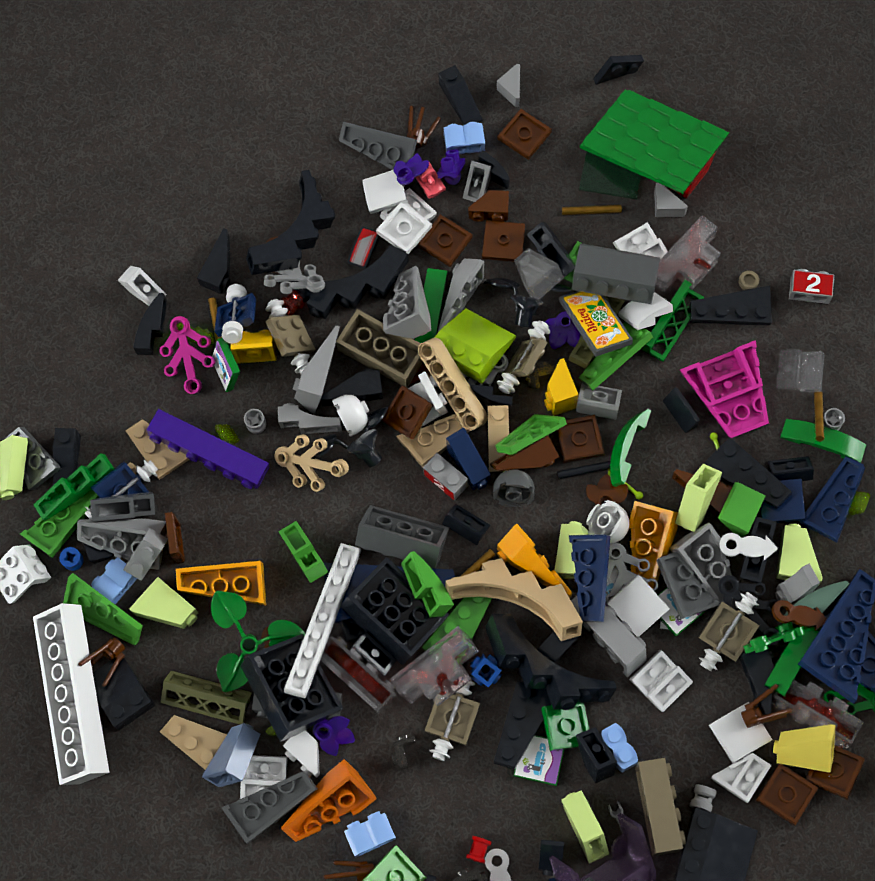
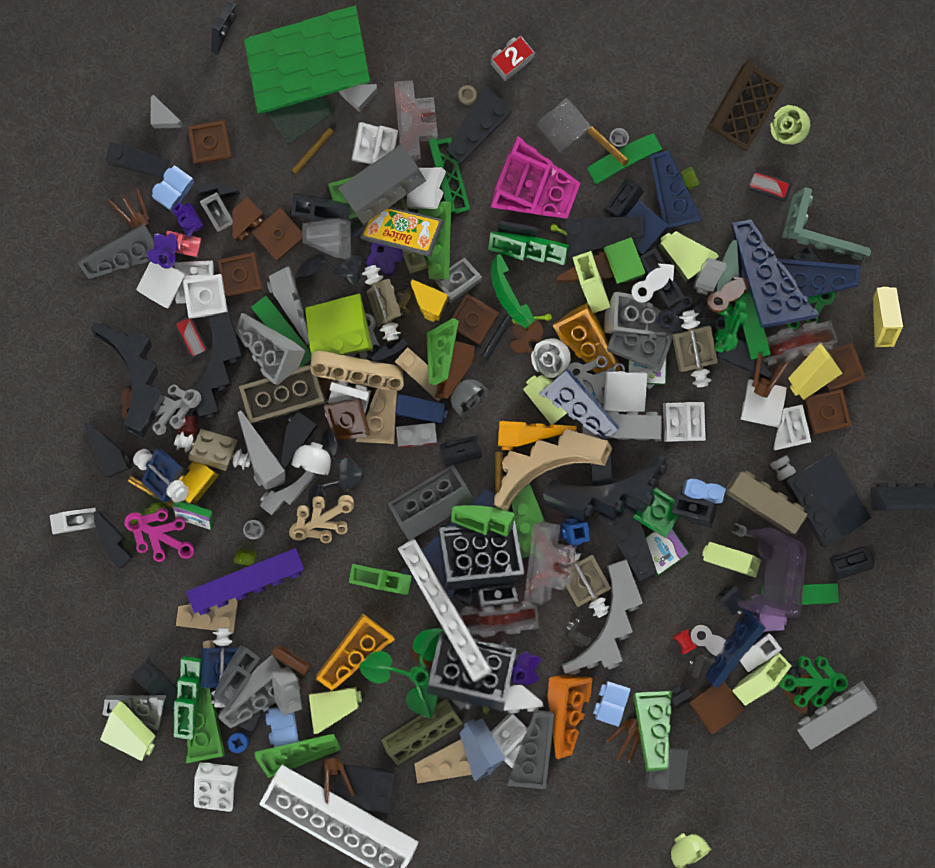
camera: 55 degrees left, 15 degrees up
(411, 785) = (604, 648): none -> light grey arch
(678, 428) = (528, 247): none -> green slope

